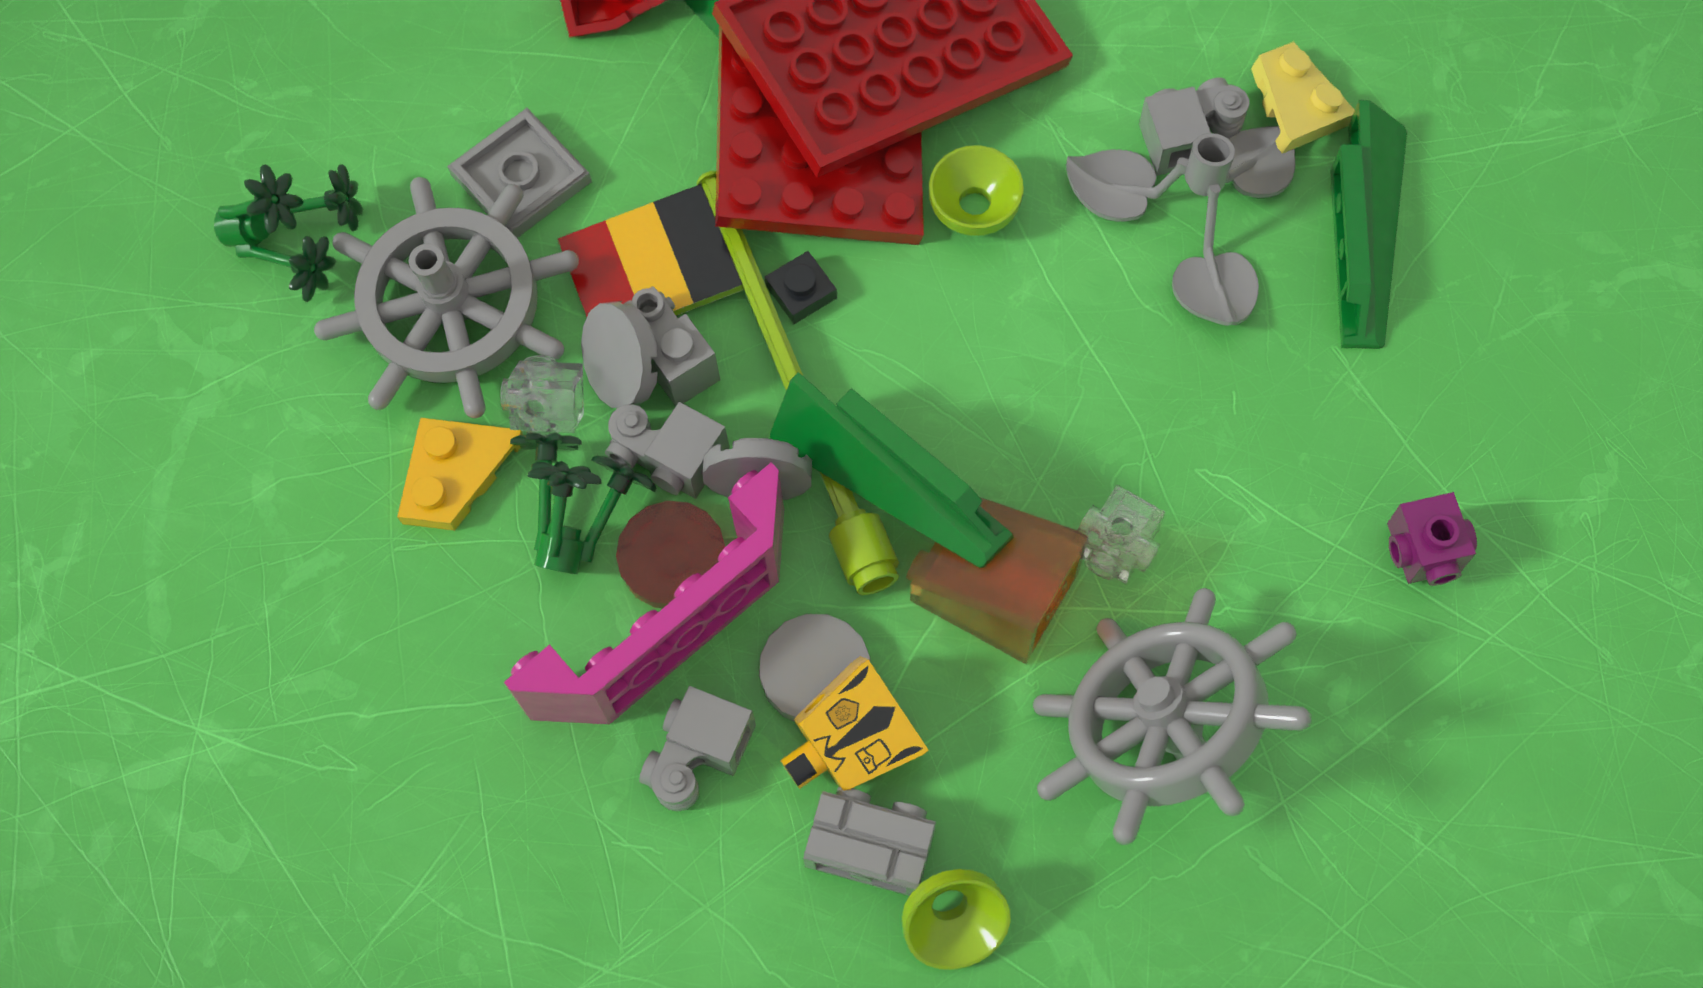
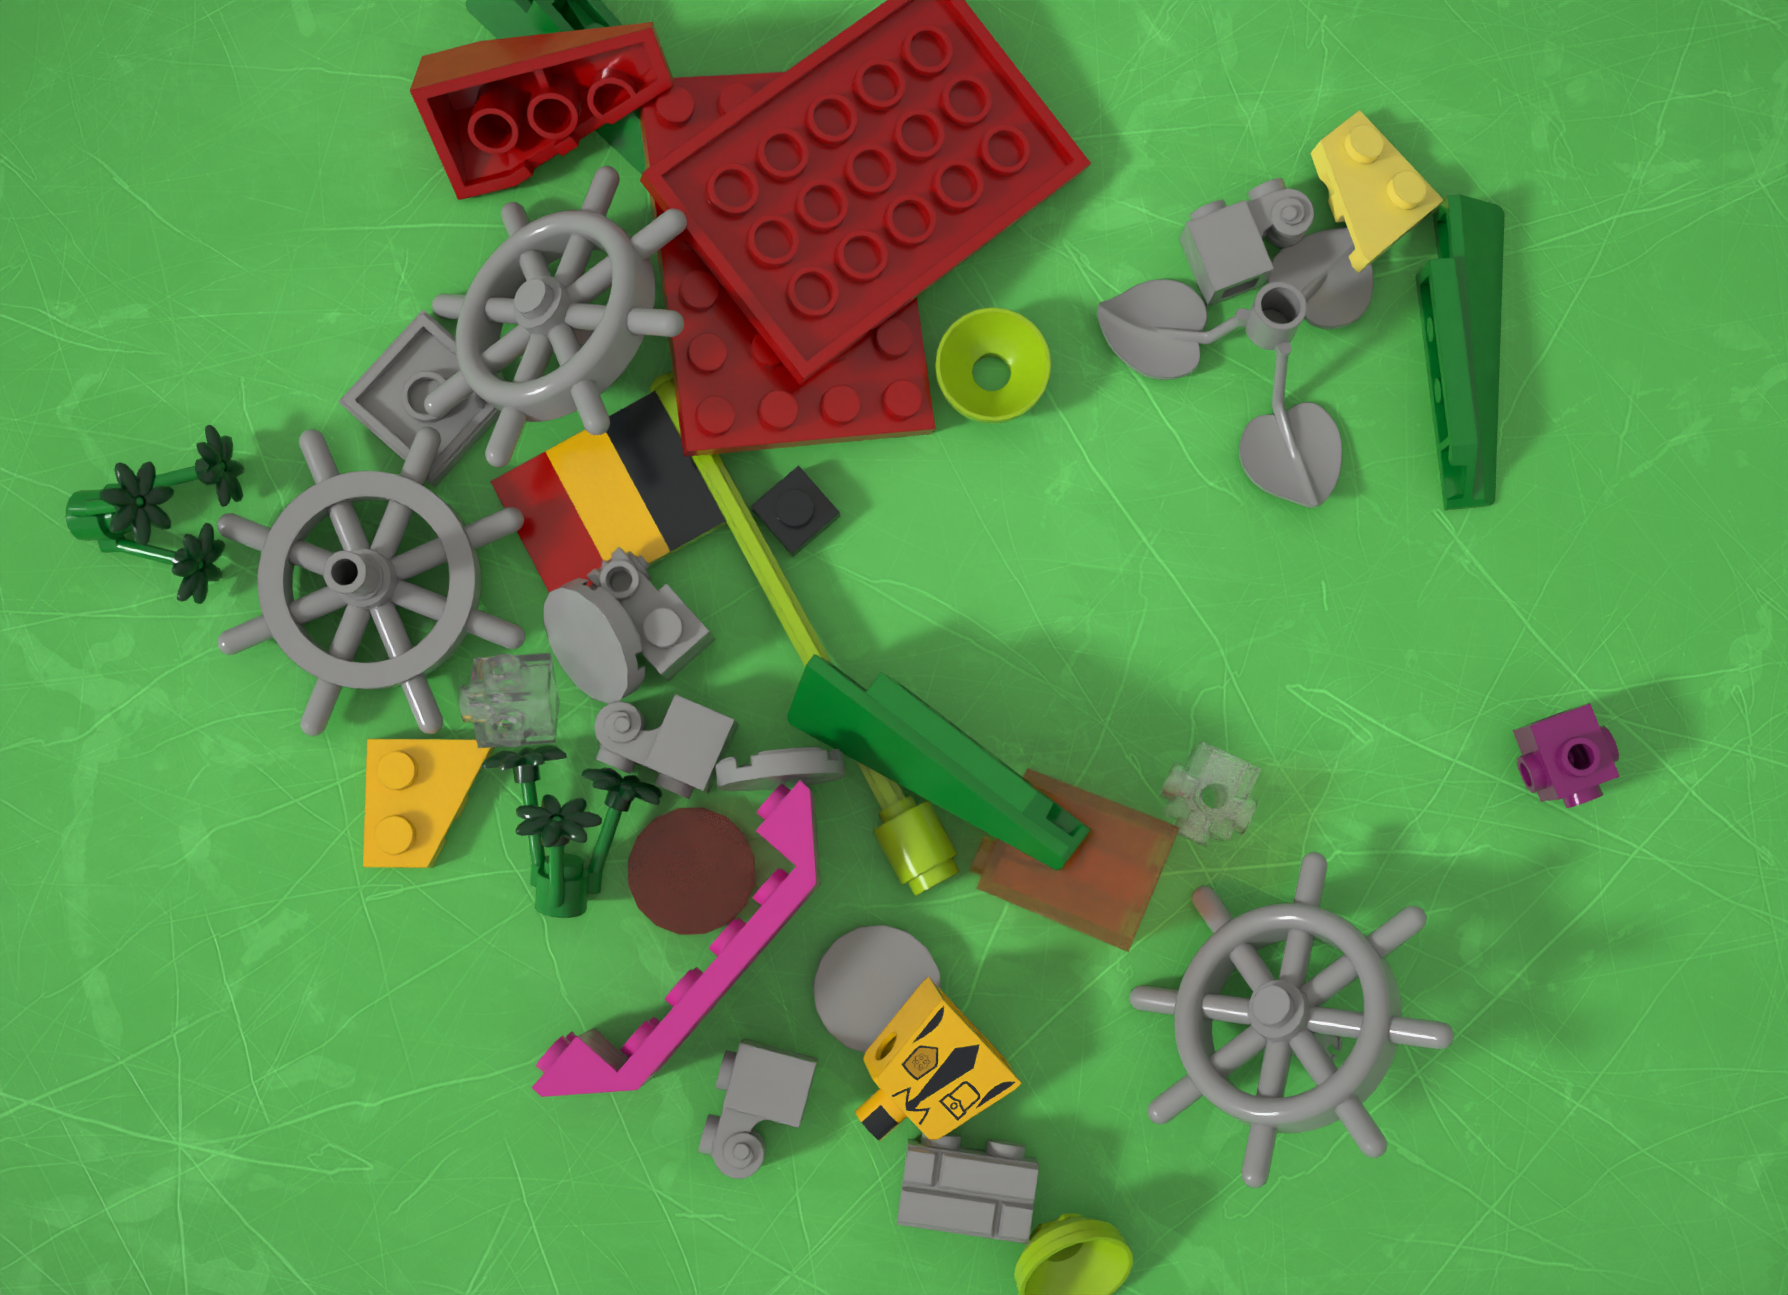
camera: 10 degrees left, 15 degrees up
(630, 106) = (555, 315): none -> light grey piece

